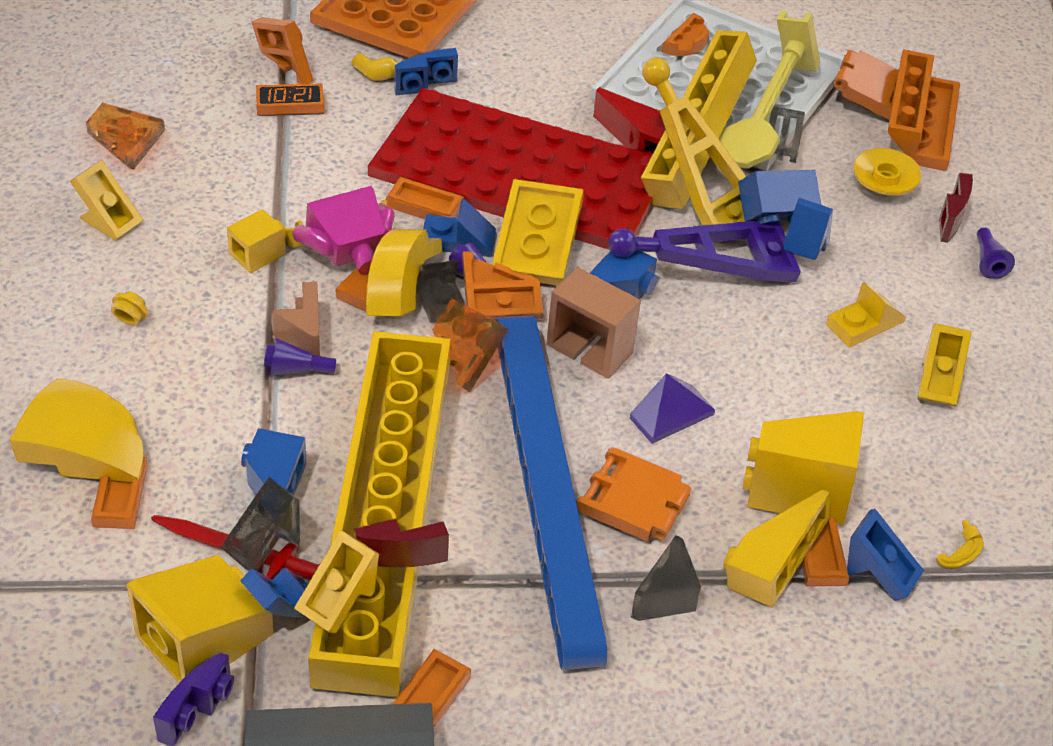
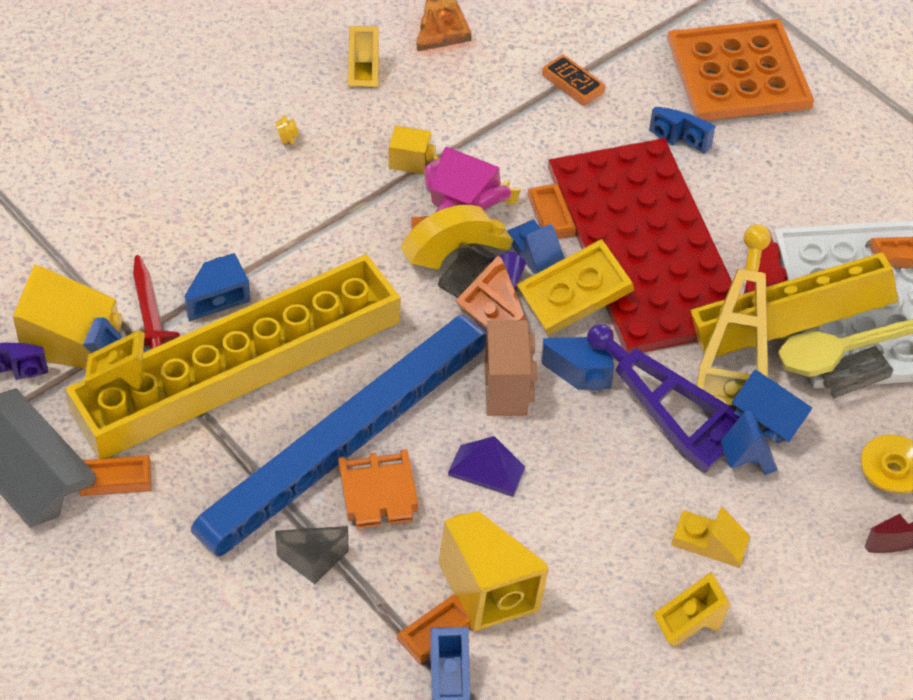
camera: 55 degrees right, 5 degrees up
(80, 433) = (163, 174): yellow brick -> none
(118, 502) = (140, 227): orange tile -> none
(269, 517) = (159, 305): clear smoke slope -> none
(282, 43) = (615, 36): orange wing -> none
(288, 359) = (321, 232): dark purple cone -> none
(300, 324) = (363, 223): nougat slope -> none
(375, 69) = (656, 97): yellow arm -> none
(407, 548) = (177, 371): dark red slope -> none
(472, 340) = (429, 313): clear orange wing -> none
(775, 549) = (397, 596): yellow slope -> none
(994, 258) = (871, 590): dark purple cone -> none

